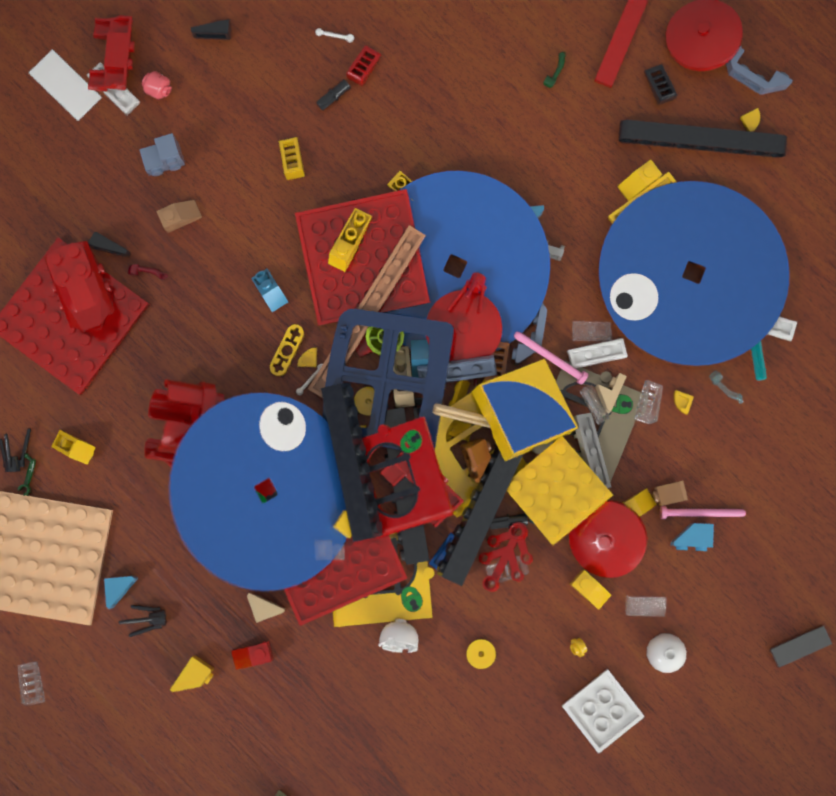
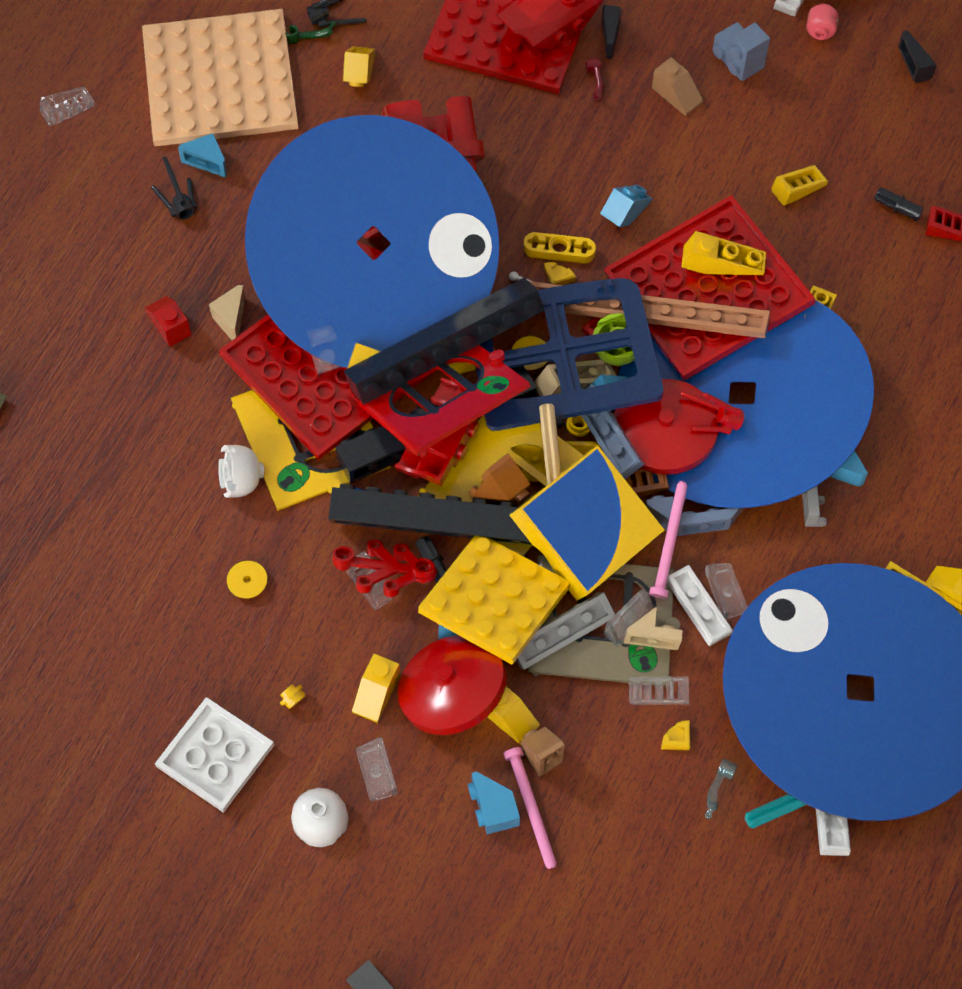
camera: 70 degrees right, 20 degrees down
(193, 675) = (125, 261): yellow slope -> none

